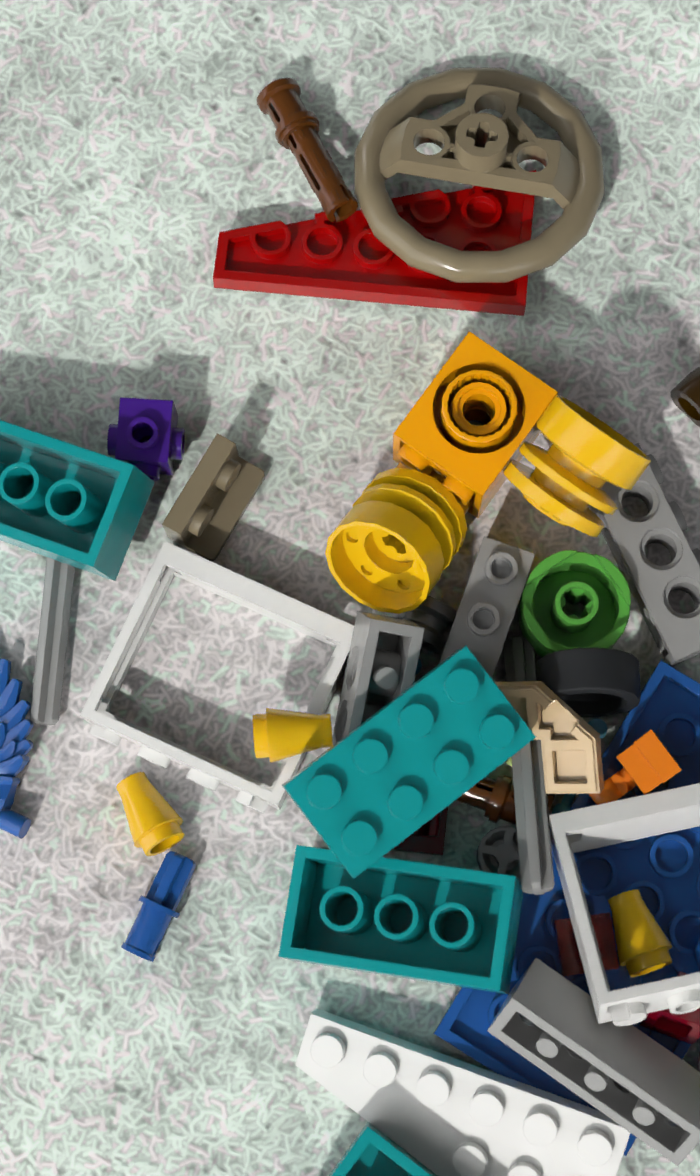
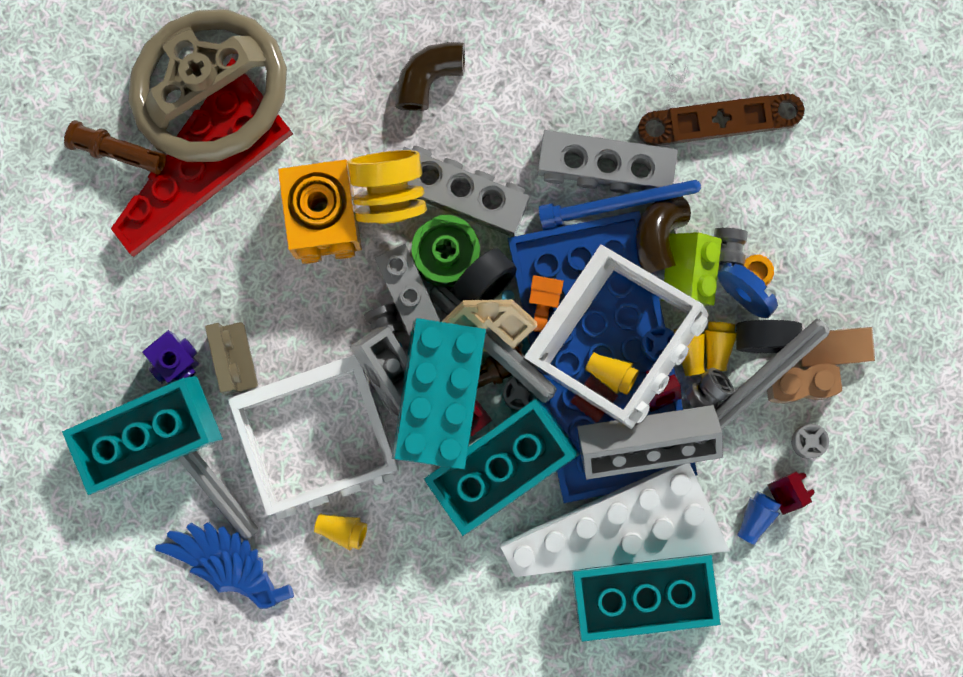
camera: 45 degrees left, 5 degrees up
(159, 906) = (386, 566): blue axle -> none
(290, 733) = (371, 432): yellow cone -> none
(396, 540) = (336, 297): yellow wheel -> none

